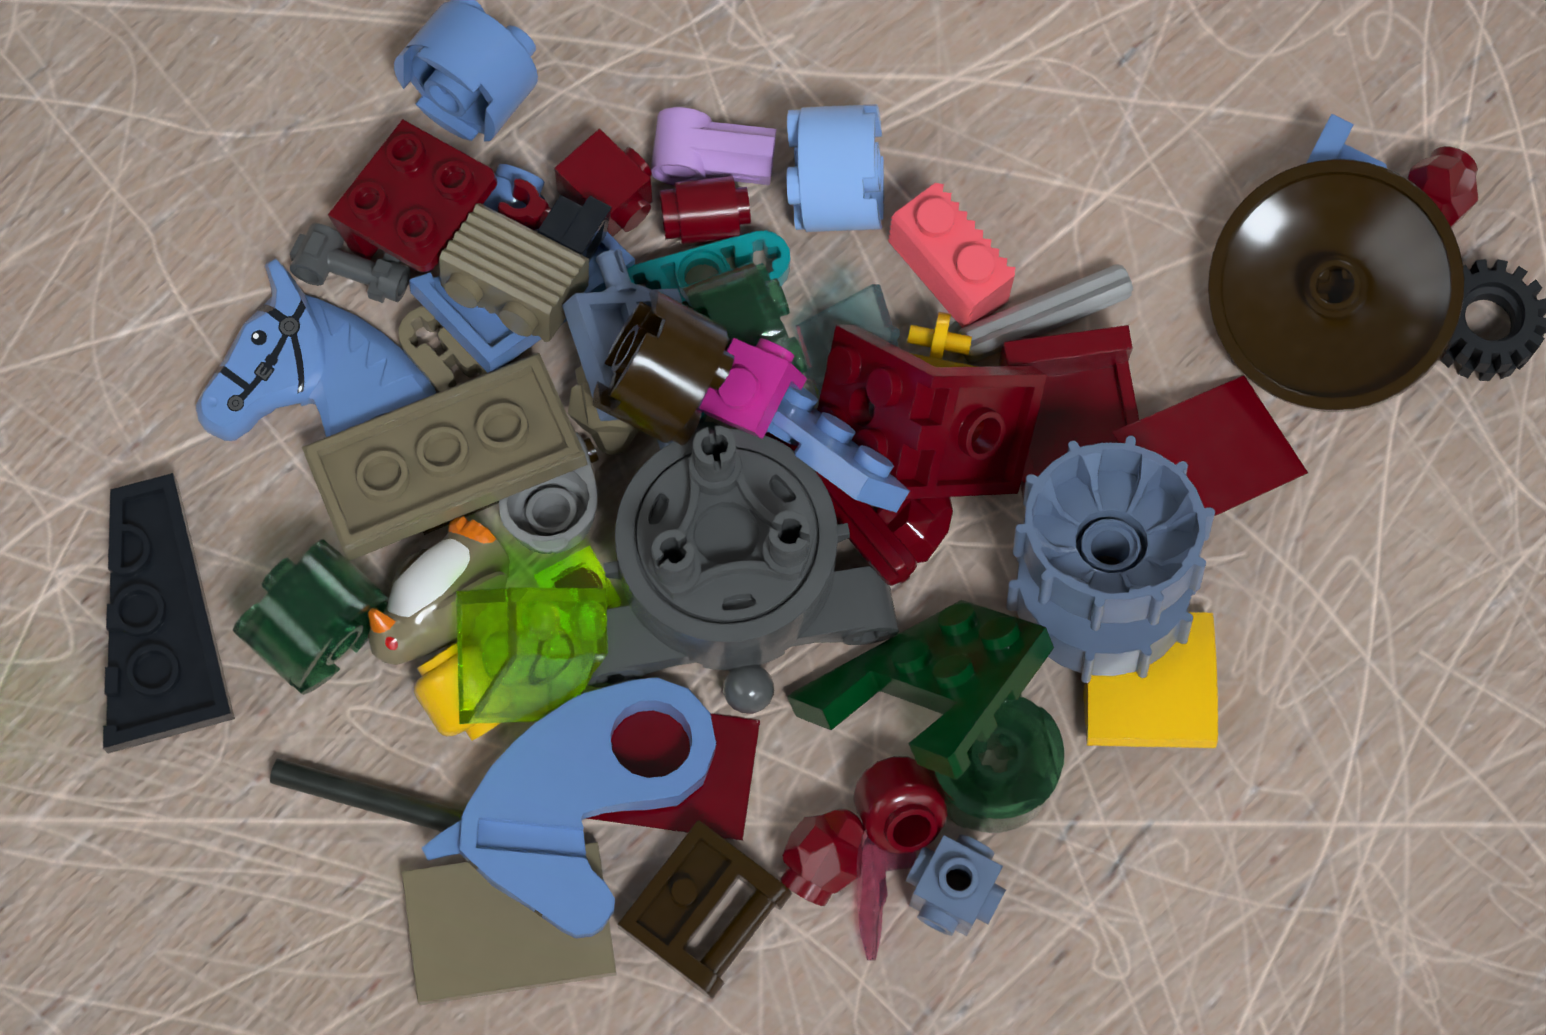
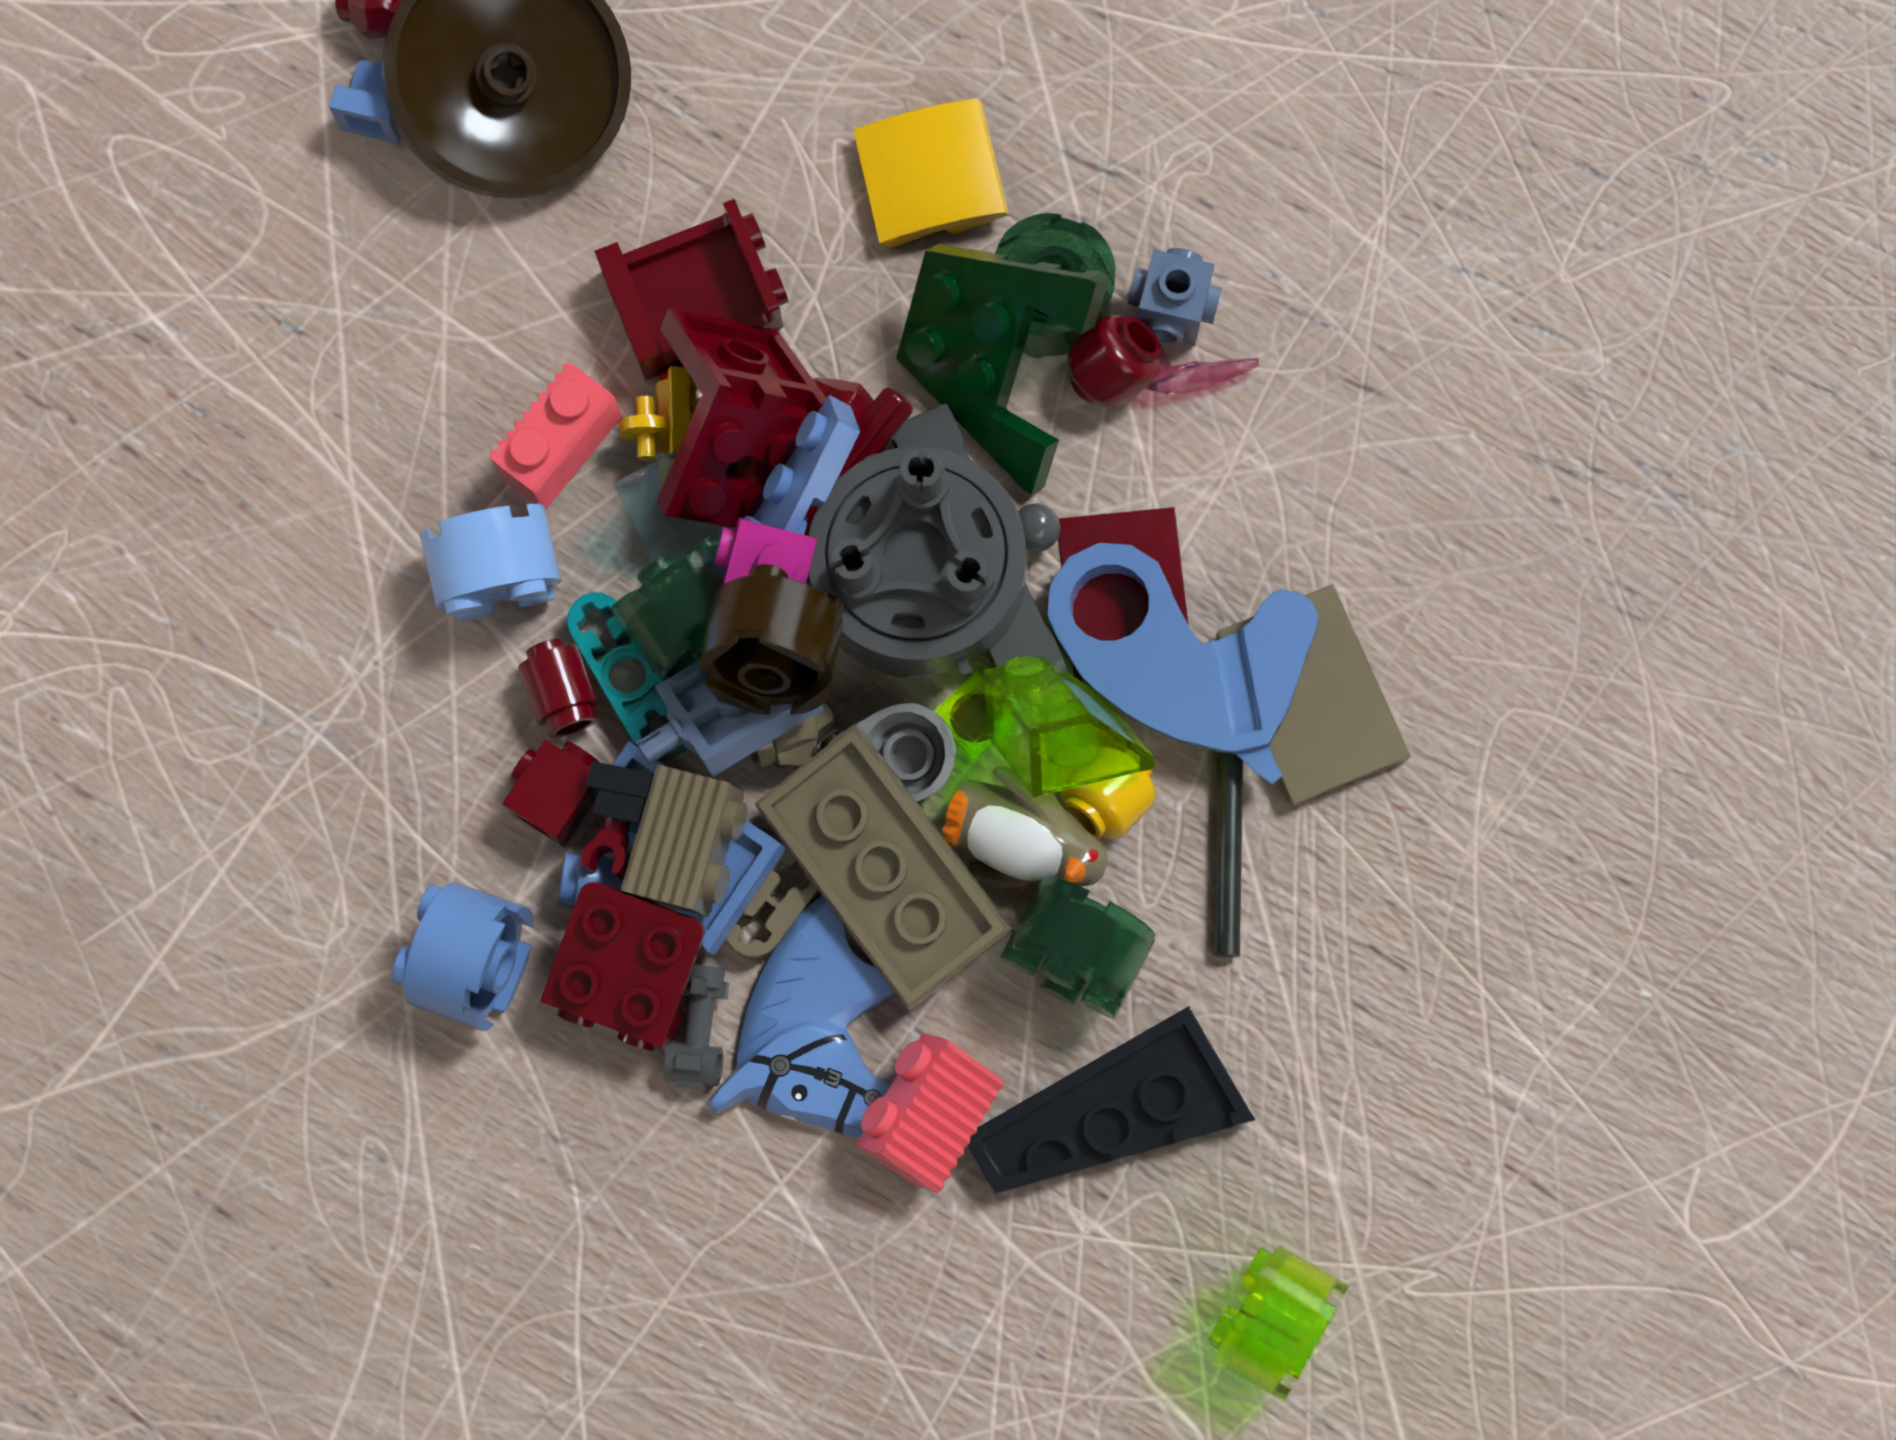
camera: 100 degrees left, 5 degrees up
(201, 444) = (928, 1112): none -> coral brick
(686, 896) = (1245, 537): dark brown plate -> none
(696, 148) = (493, 713): lavender piece -> none
(823, 855) = (1177, 420): dark red rock -> none
(1048, 311) = (584, 338): light grey axle -> none
(1119, 506) = (810, 168): sand blue piece -> none
(1227, 442) = (700, 158): dark red sticker -> none

